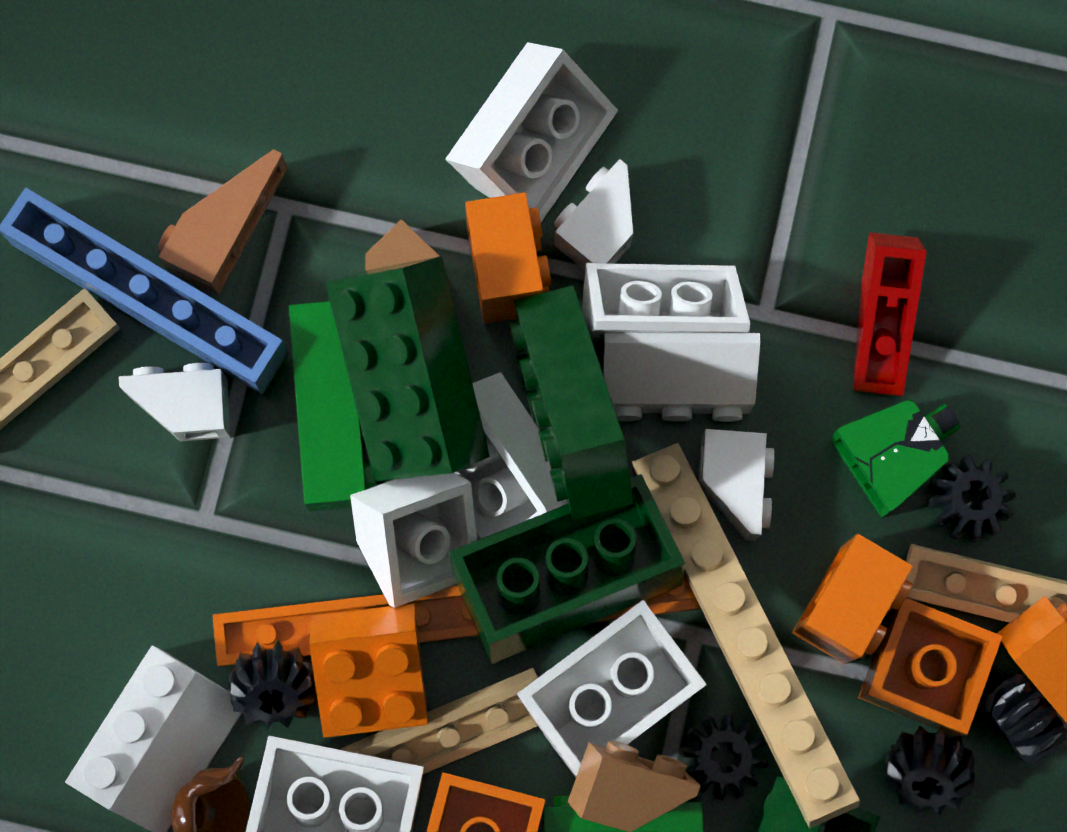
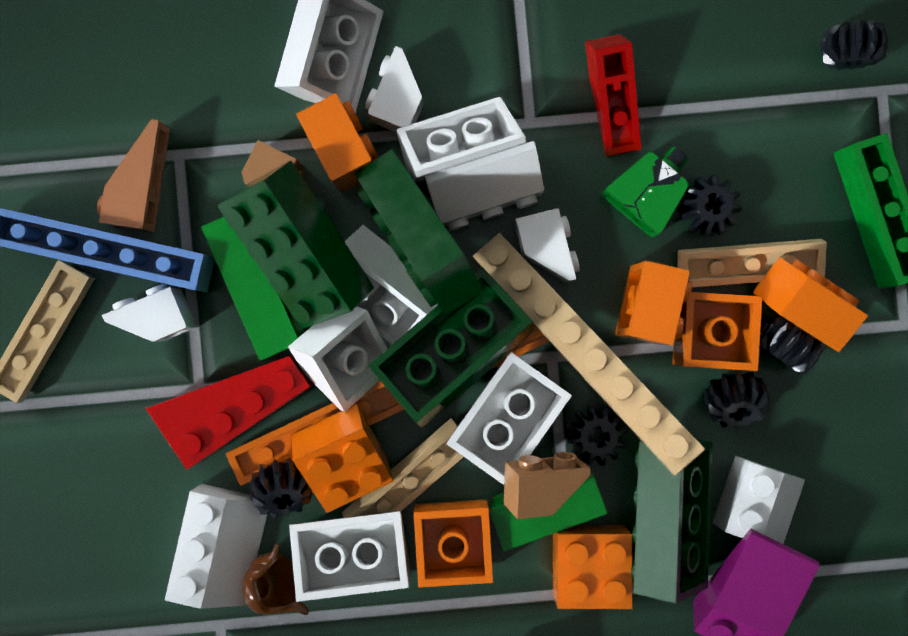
camera: 10 degrees left, 10 degrees up
(231, 557) = (221, 412): none -> red wedge

